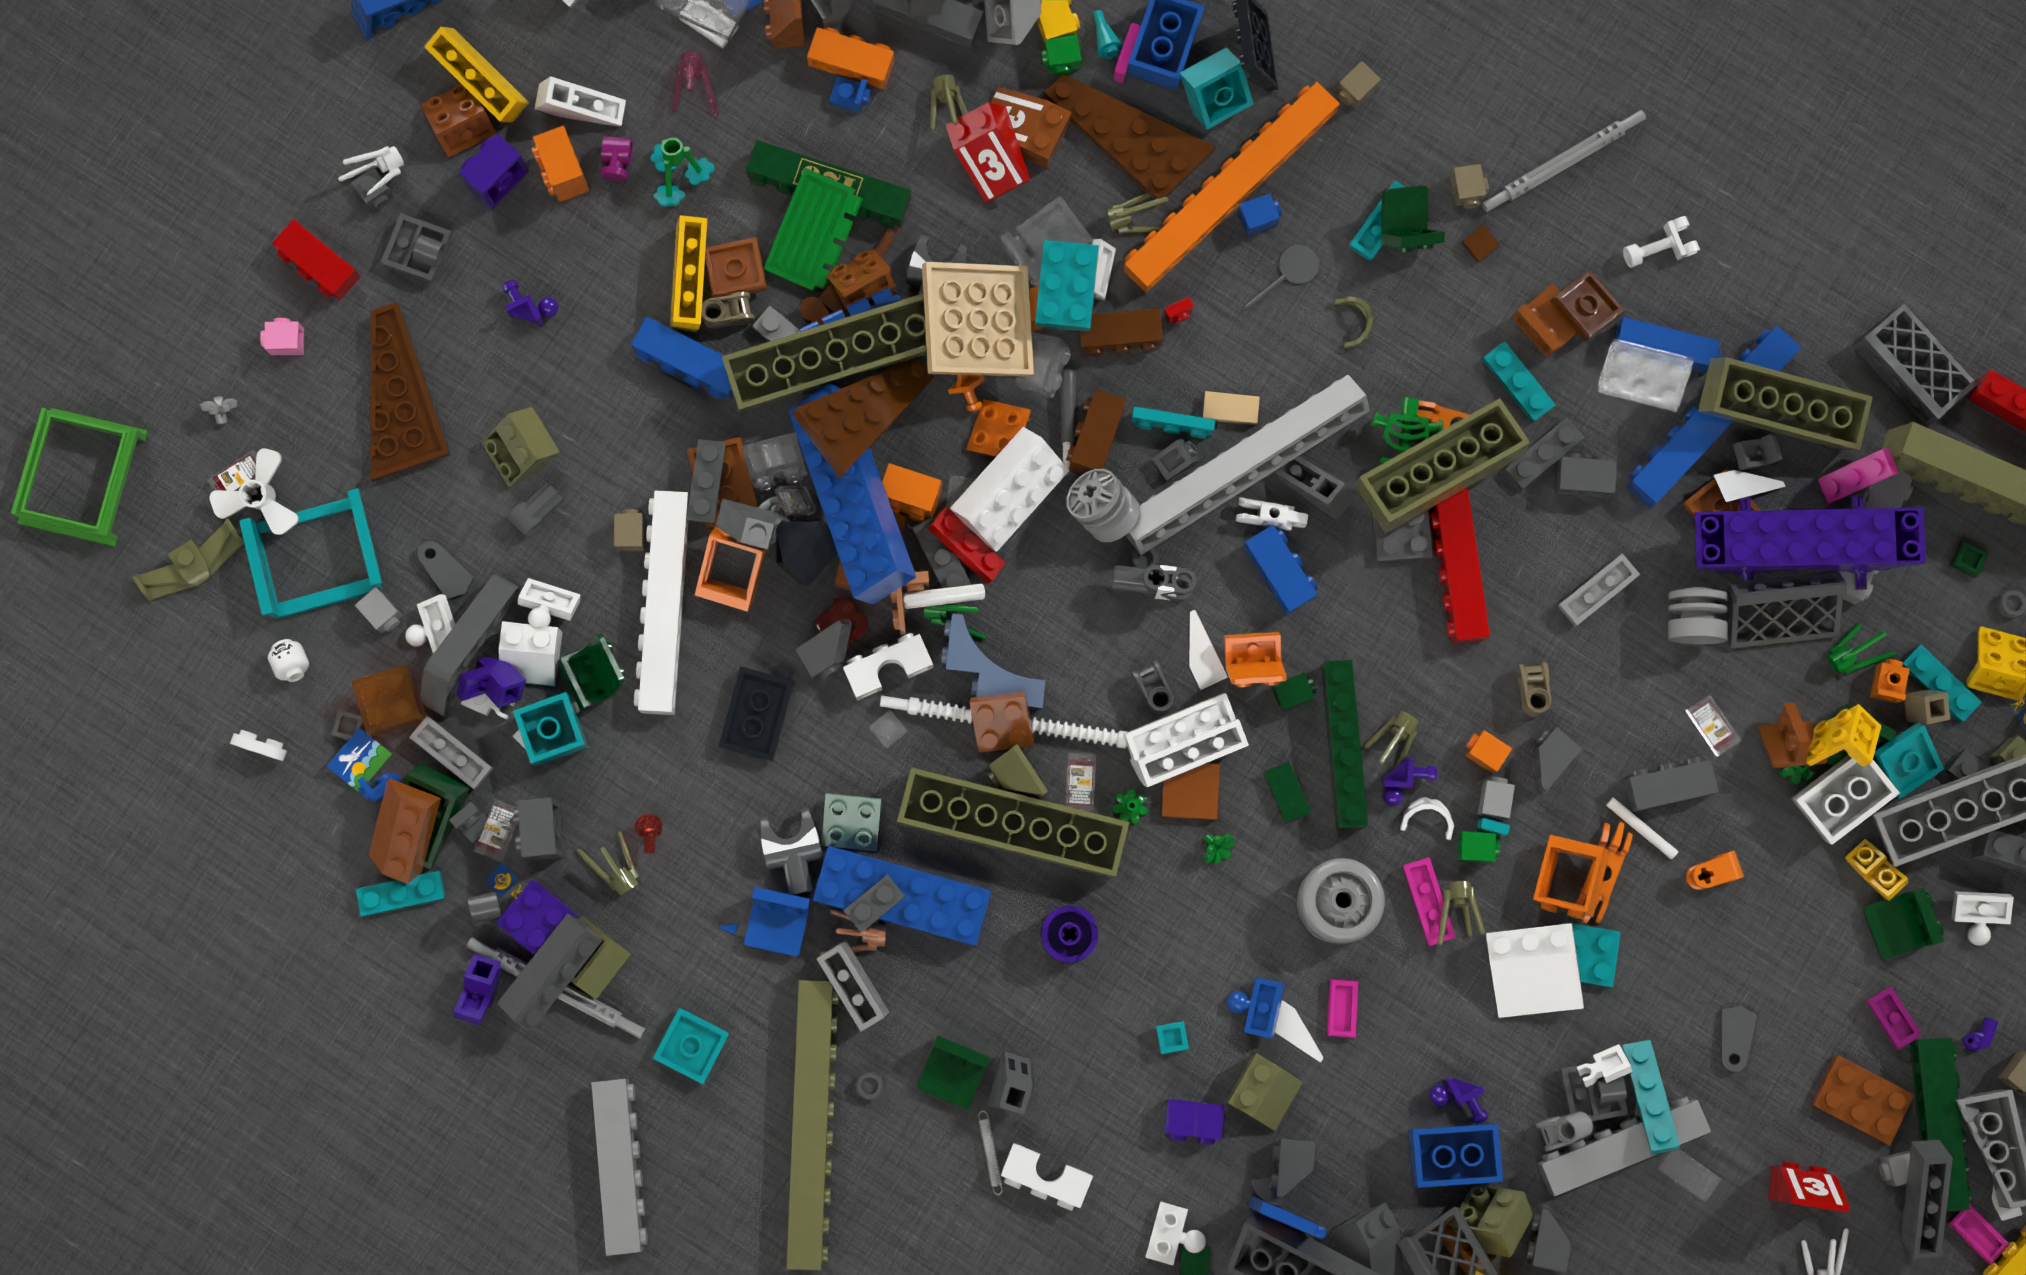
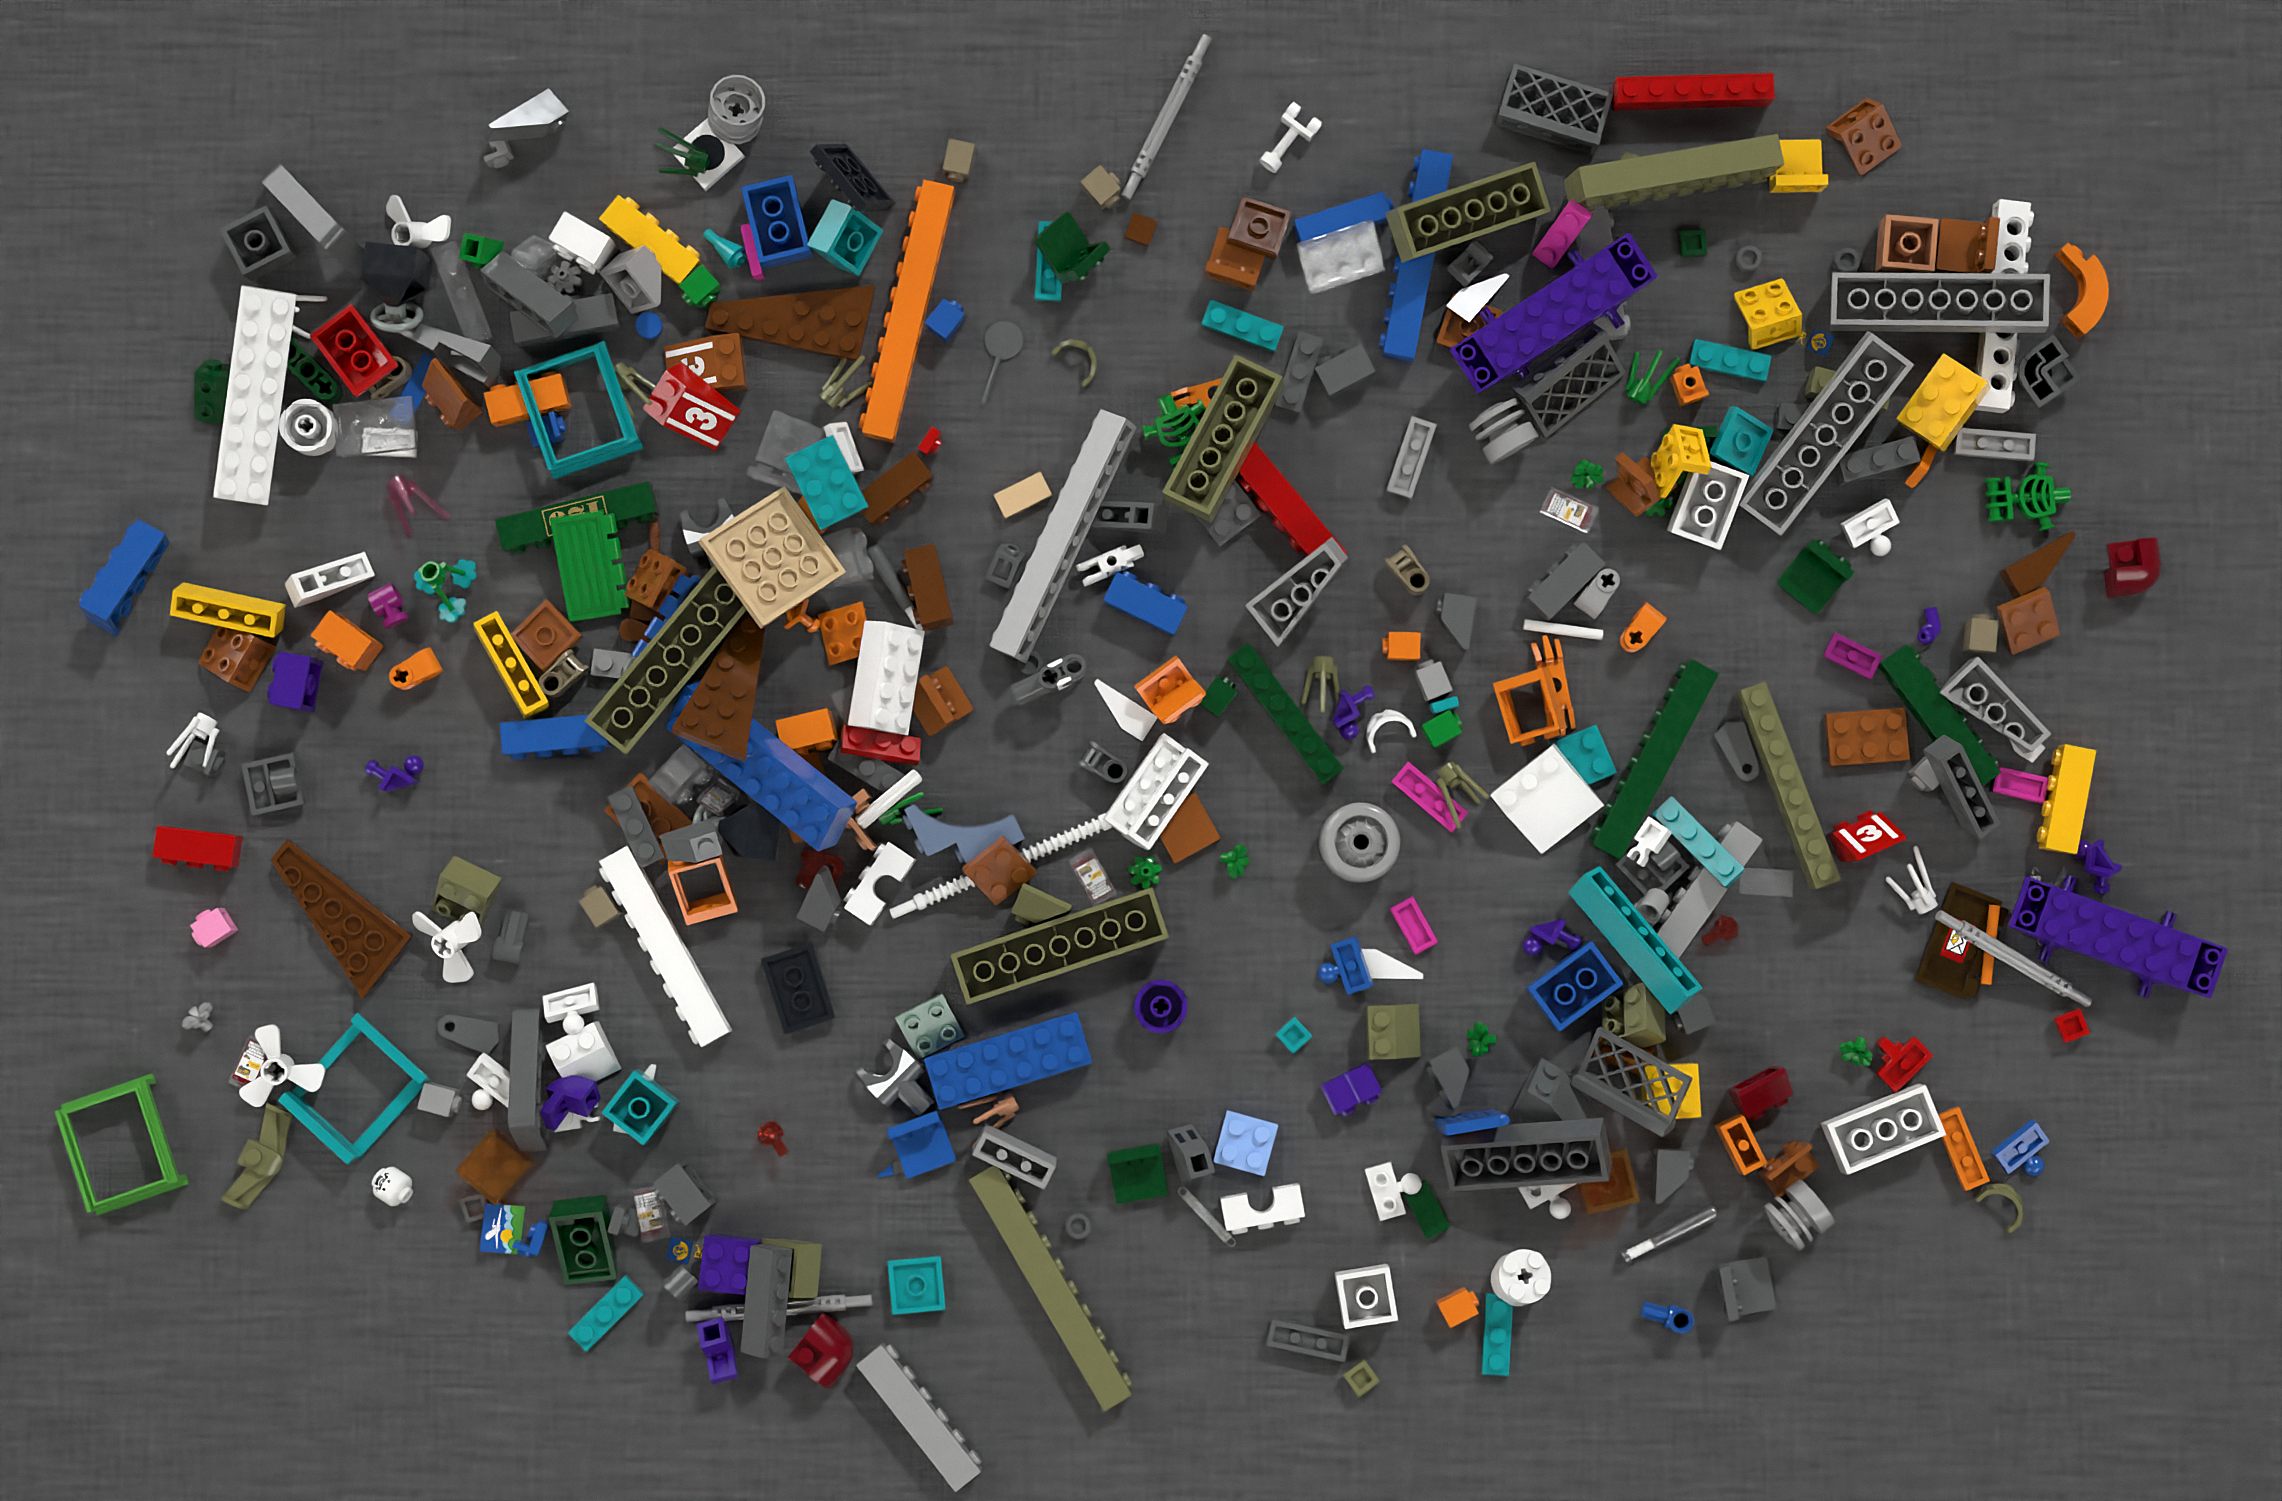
camera: 30 degrees left, 5 degrees up
(248, 741) = (403, 1271): white plate -> none
(403, 831) = (576, 1263): dark orange slope -> none
(451, 752) = (572, 1175): light grey plate -> none
(478, 479) = (449, 942): none -> white piece
(571, 1052) = (824, 1351): none -> dark red brick
(592, 673) = (645, 1040): dark green bracket -> none
(606, 228) = (420, 667): none -> orange piece
(622, 879) = (775, 1189): olive plant -> none
(874, 903) = (990, 1082): dark grey plate -> none
(879, 141) = (594, 456): none -> teal piece
(888, 729) = (912, 933): clear plate -> none
(996, 61) = (649, 326): none -> blue tile
(1043, 541) = (939, 701): none -> dark orange bracket
(1067, 1107) = (1245, 1143): none -> light blue plate
(1103, 505) = (969, 643): light grey wheel -> none
(1172, 422) = (983, 538): teal plate -> none
(1287, 792) = (1262, 780): dark green tile -> none
(1339, 1150) = (1480, 1039): none -> green plant
(1417, 642) = (1291, 596): none -> light grey wedge
(1538, 1148) = (1635, 940): none -> teal brick
(1627, 1192) = (1726, 928): none -> clear red plate
(1654, 996) = (1653, 759): none -> dark green brick
(1691, 814) = (1594, 595): none -> light grey piece
(1749, 703) = (1586, 474): none -> green plant
(1763, 1097) = (1787, 786): none -> olive brick
(1876, 869) = (1768, 545): yellow slope -> none
(1927, 707) = (1729, 388): dark tan brick -> none

